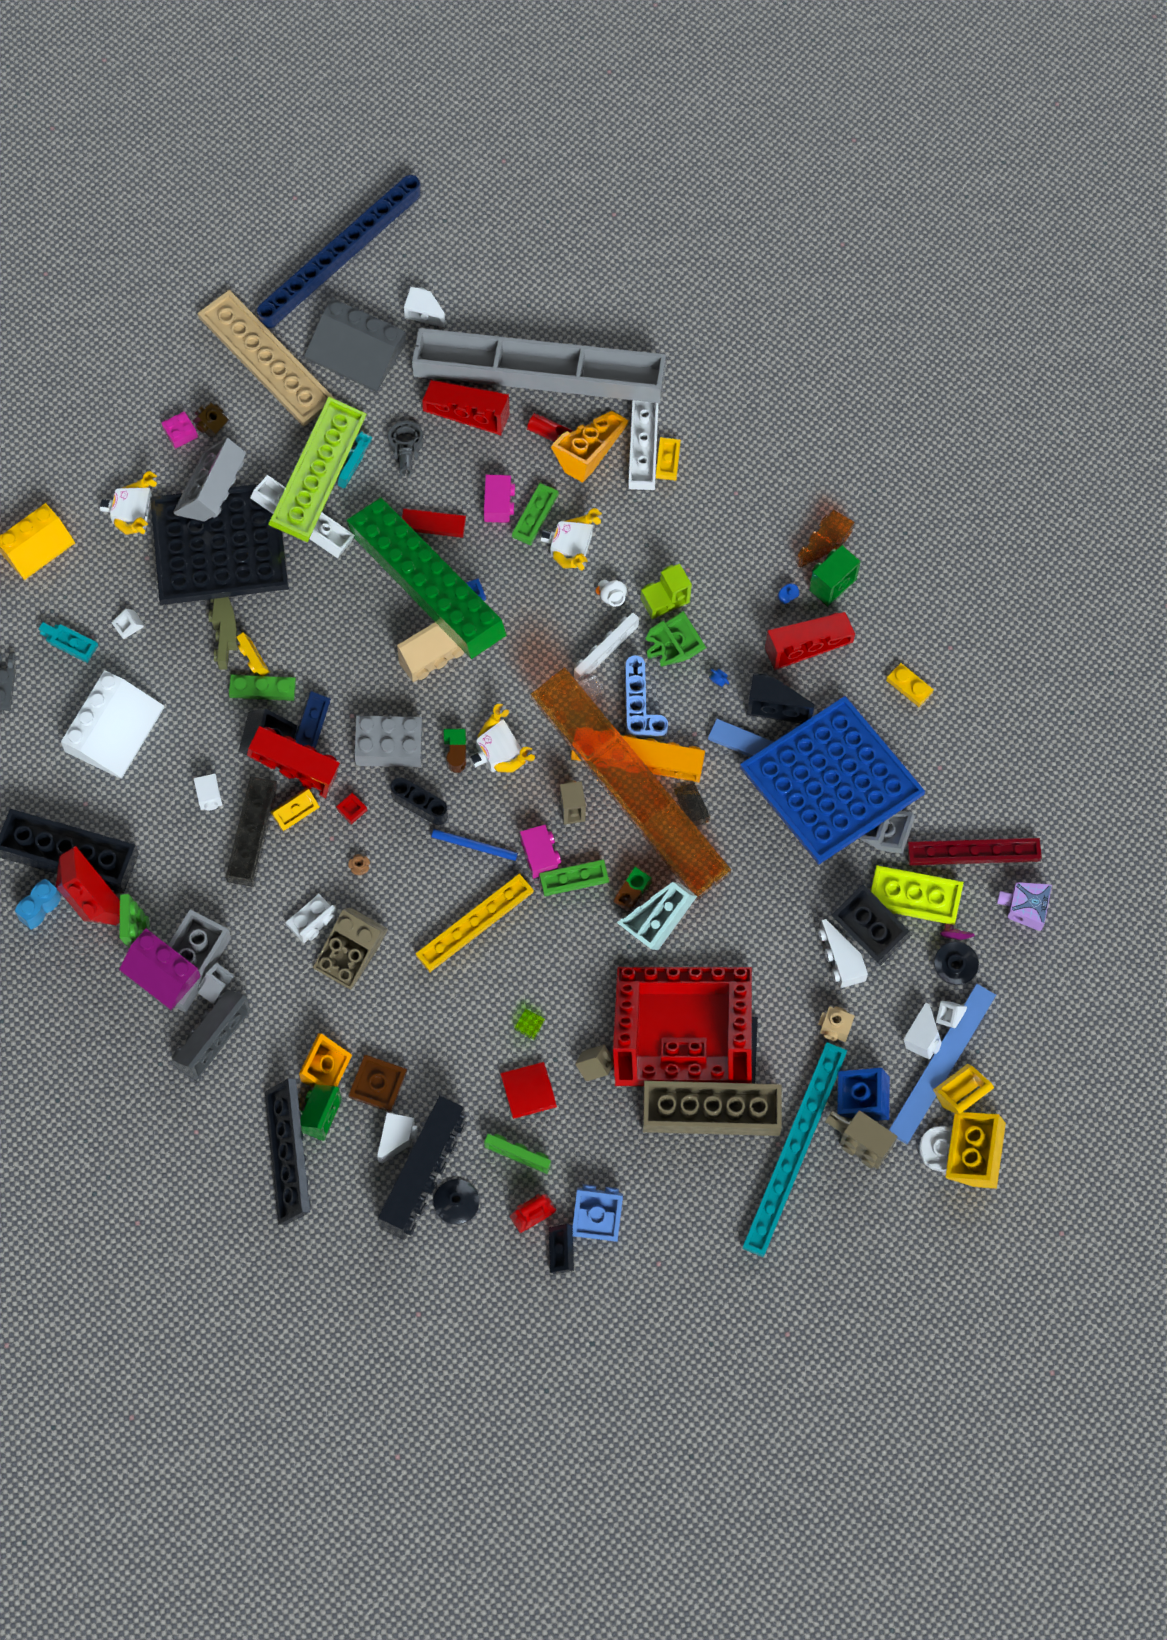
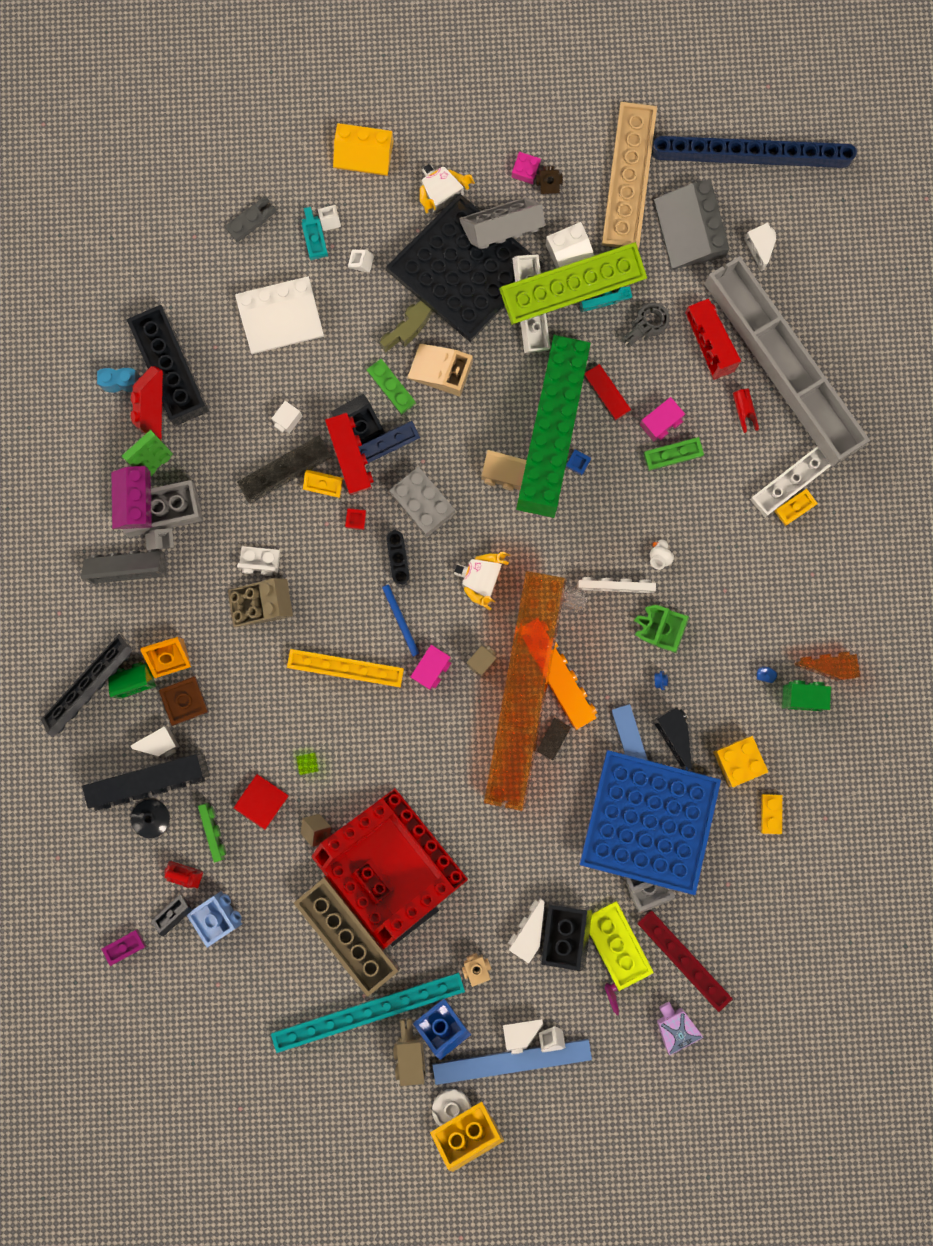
camera: 55 degrees right, 15 degrees up
(65, 616) = (329, 218): none -> white slope
(248, 648) = (406, 360): yellow plate -> none
(281, 450) = (569, 245): none -> white slope
(287, 632) = (441, 368): none -> tan slope
(359, 870) = (322, 563): medium nougat plate -> none
(457, 755) = (452, 555): leg -> none
(553, 1316) = (123, 947): none -> magenta plate
(572, 540) = (674, 496): torso -> none
(574, 877) = (432, 706): bright green plate -> none
(586, 447) = (755, 444): light orange wedge -> none
(633, 889) = (457, 752): leg -> none
(638, 698) = (598, 641): light blue beam -> none
(659, 915) = (445, 787): light aqua wedge -> none
(668, 594) = (691, 593): lime brick -> none
(808, 639) = (743, 718): red wedge -> none
(843, 671) = (740, 761): none -> yellow brick
(959, 1086) = (502, 1087): yellow tile -> none
(962, 955) = (590, 1025): black dish -> none

